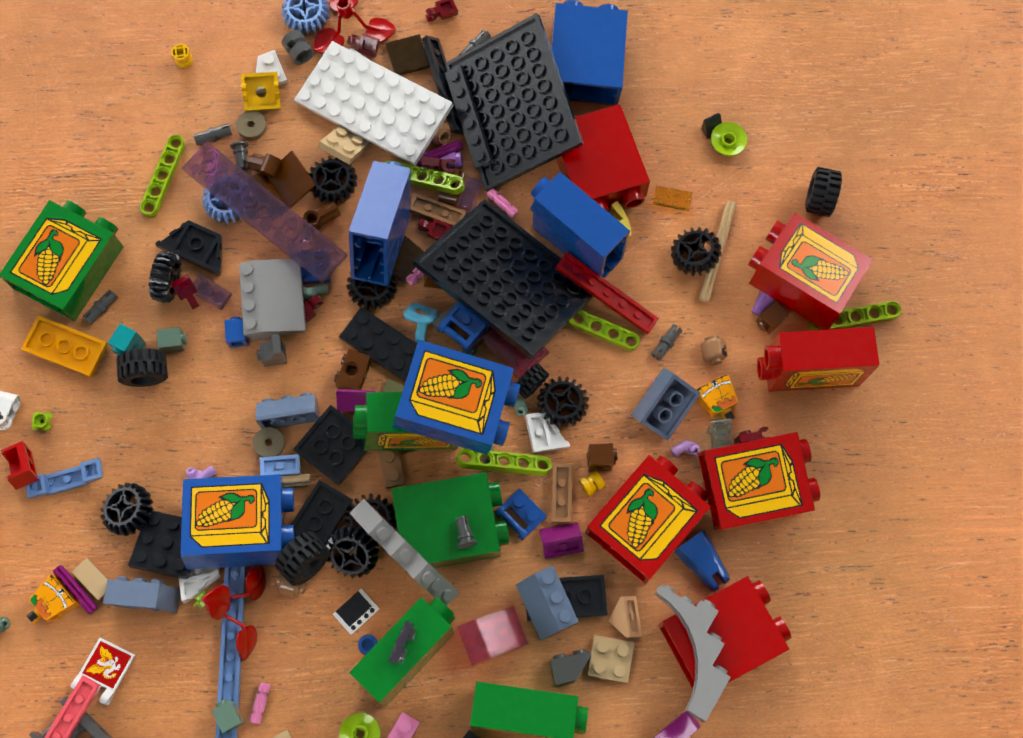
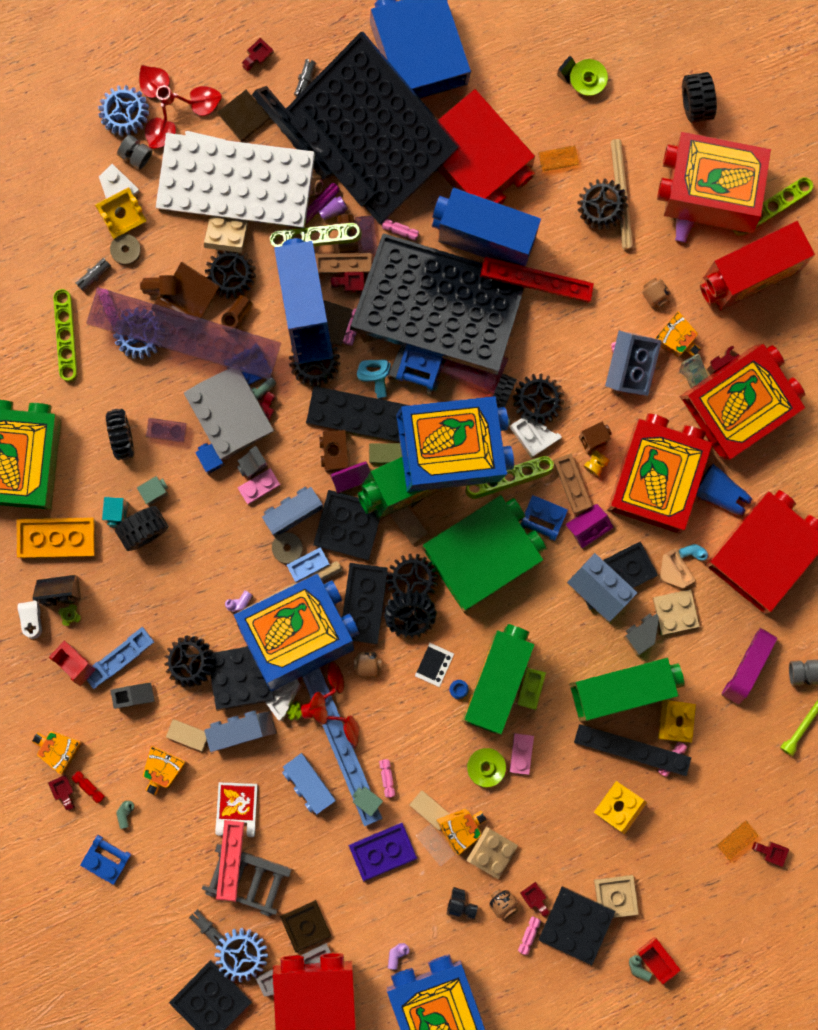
camera: 25 degrees left, 10 degrees up
(38, 392) = (57, 589): none -> black slope
(58, 518) = (132, 695): none -> dark grey slope
(75, 589) = (176, 750): magenta axle -> none
(100, 306) = (69, 486): dark grey pin -> none
(181, 675) = (308, 784): none -> medium blue brick
(182, 56) = (28, 209): yellow wheel -> none
(185, 289) = (144, 438): dark red plate -> none
(195, 245) = (130, 391): black wing -> none
(240, 153) = (130, 284): dark grey pin -> none
(269, 376) = (259, 486): none -> bright pink plate
(302, 558) = (371, 639): black tyre -> none
(367, 44) = (199, 121): dark red plate -> none
(403, 552) = (457, 596): light grey arch -> none
(407, 634) = (500, 668): plate -> none
(433, 163) = (320, 218): dark red plate -> none
(438, 674) = (531, 688): none -> lime plate
(465, 534) = (506, 557): dark grey pin -> none
(492, 635) = (564, 635): clear pink slope -> none
(605, 328) = (548, 318): lime beam -> none
(618, 212) = (525, 206): light yellow slope -> none
(653, 606) = (695, 551): none -> medium azure arm
(666, 342) = (609, 302): dark grey pin -> none
(686, 447) = (666, 394): lavender arm -> none
(709, 680) = (771, 596): light grey arch -> none
(771, 318) = (697, 240): reddish brown brick -> none

